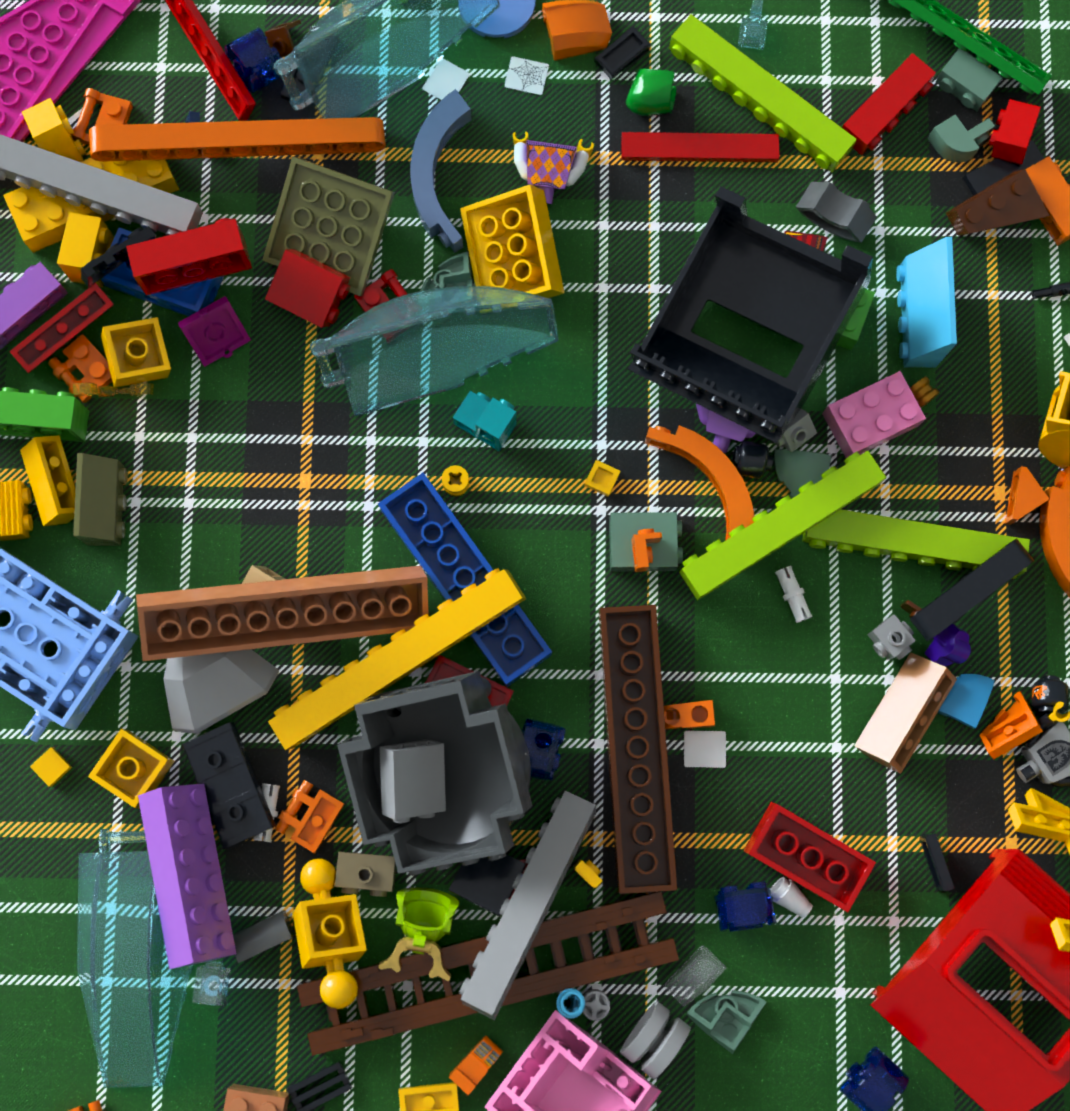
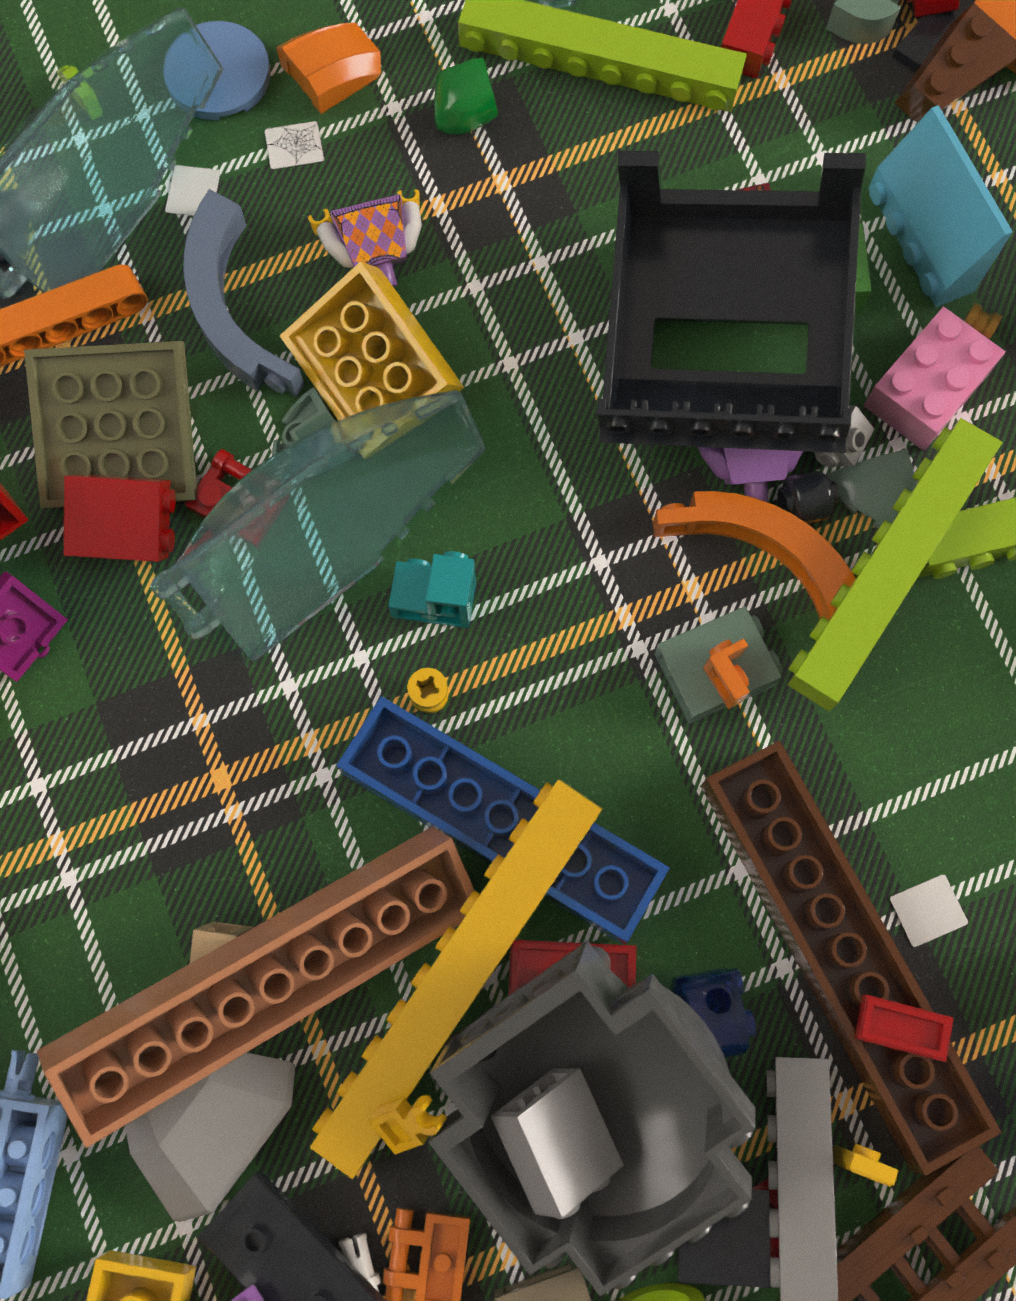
camera: 20 degrees left, 5 degrees down
(328, 730) = (405, 1125): none -> yellow plate
(602, 478) = (622, 605): yellow tile -> none
(622, 53) = (403, 71): black tile -> none
(647, 805) = (904, 1028): none -> red tile
(689, 715) = (894, 871): orange leg -> none
(699, 147) = (552, 144): red tile -> none
(793, 594) = (945, 650): white pin -> none
(836, 212) = (762, 151): dark grey brick -> none

